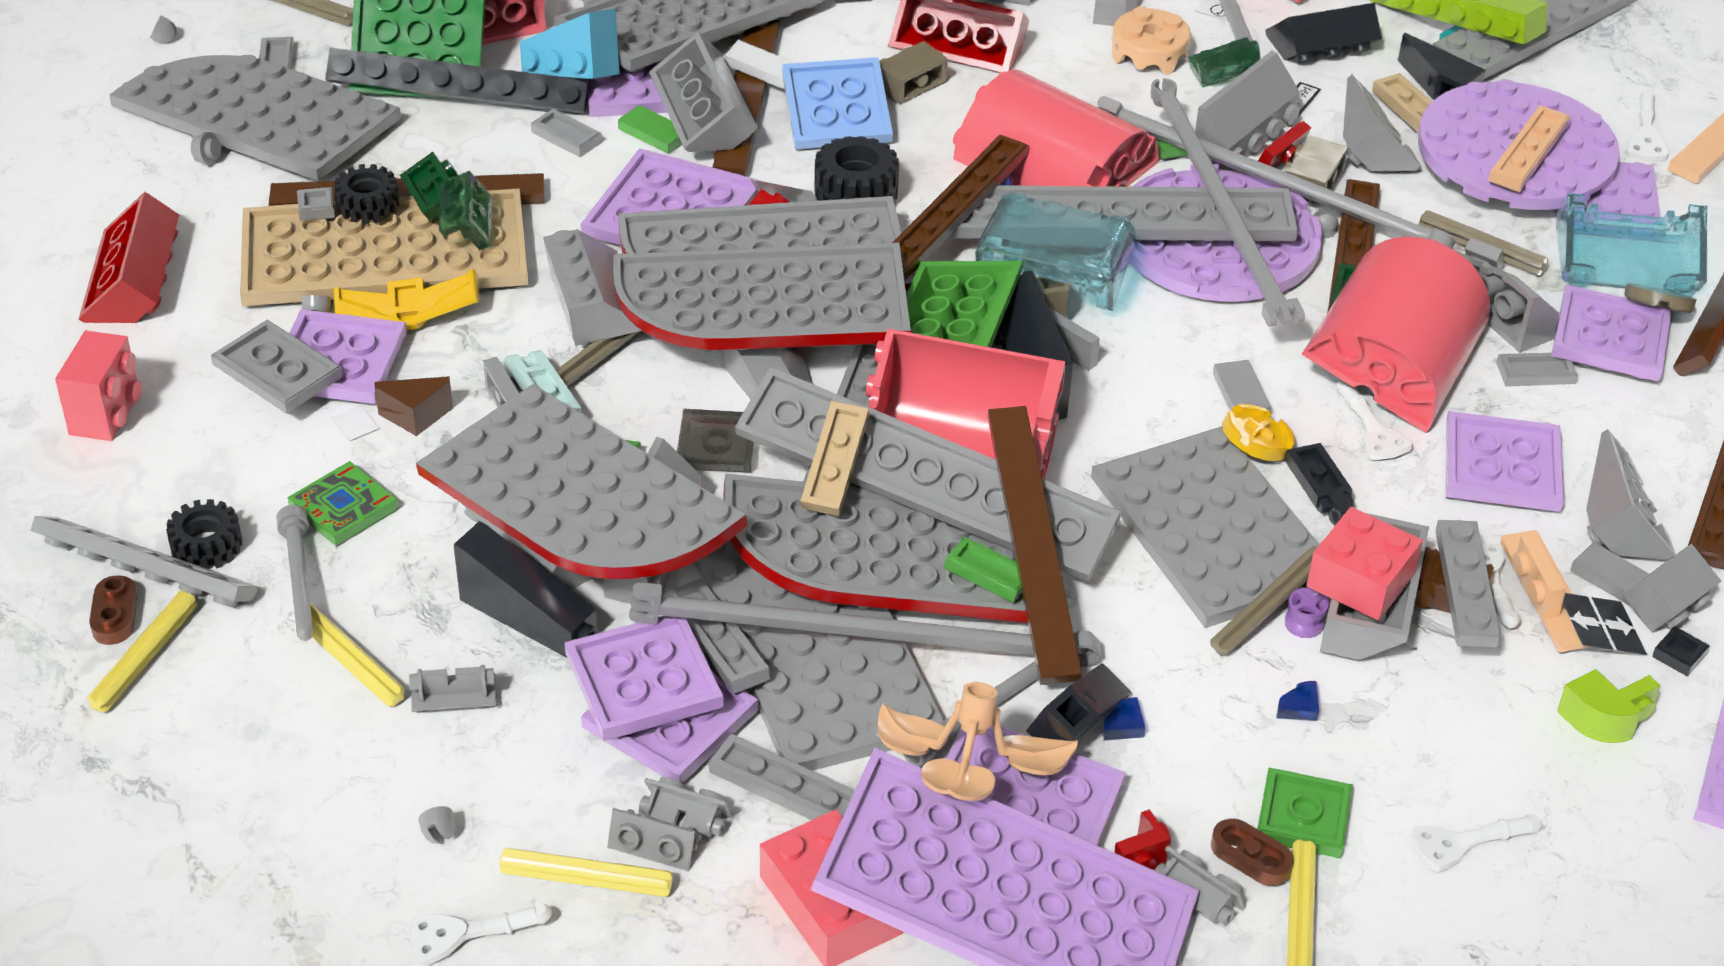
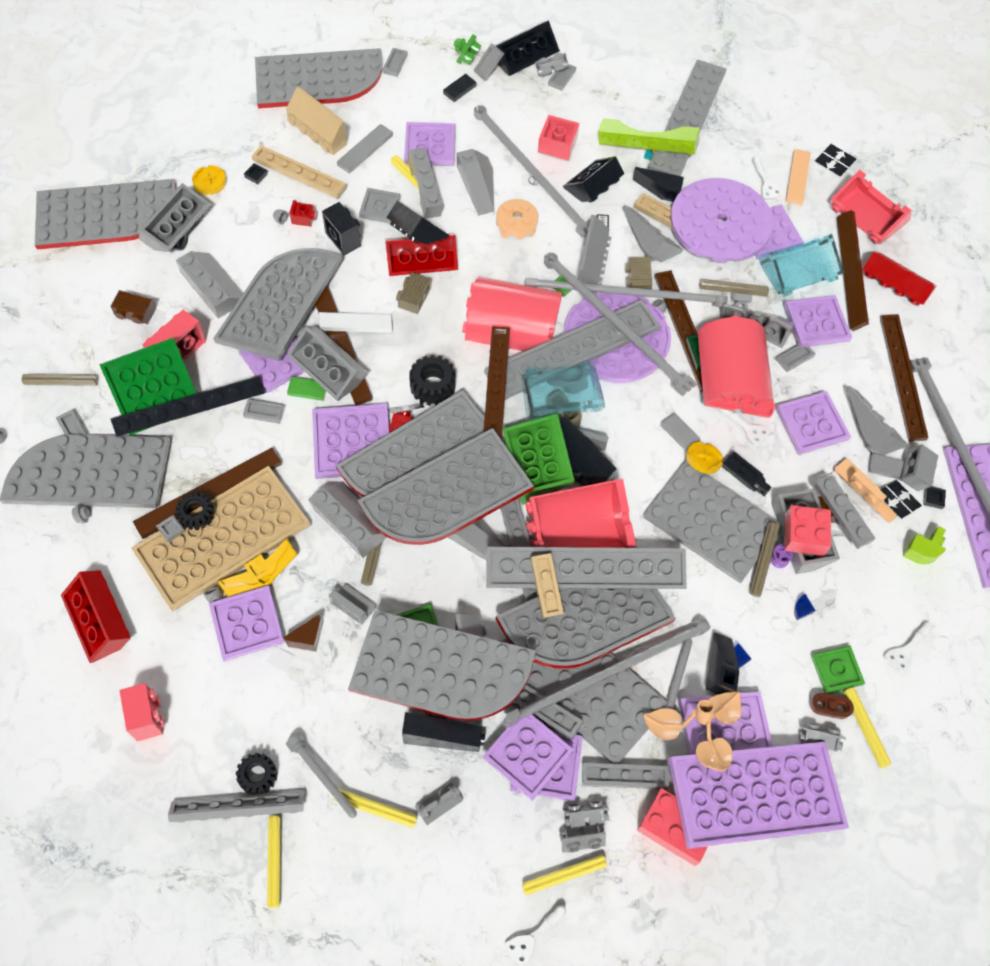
camera: 30 degrees left, 20 degrees up
(113, 610) = (240, 842): copper plate -> none
(277, 366) = (223, 649): light grey tile -> none
(344, 503) = (310, 715): bright green tile -> none
(424, 182) = (228, 489): dark green bracket -> none
(437, 824) = (483, 887): light grey hinge -> none
(467, 208) = (257, 501): clear green bracket -> none
(539, 371) = (363, 593): light aqua plate -> none
(575, 49) = (242, 362): medium azure wedge -> none
(711, 443) = (464, 582): clear smoke tile -> none
(836, 101) = (393, 333): light blue plate -> none
(985, 568) = (642, 607): bright green tile -> none
(1034, 546) = (658, 587): reddish brown tile -> none
(1148, 845) = (794, 725): red bracket -> none
(1224, 61) = (559, 219): clear green bracket -> none
(1285, 146) = (617, 267): red plate -> none
(1529, 148) = (733, 225): light nougat tile -> none
(1660, 297) = (828, 291): dark tan tile -> none

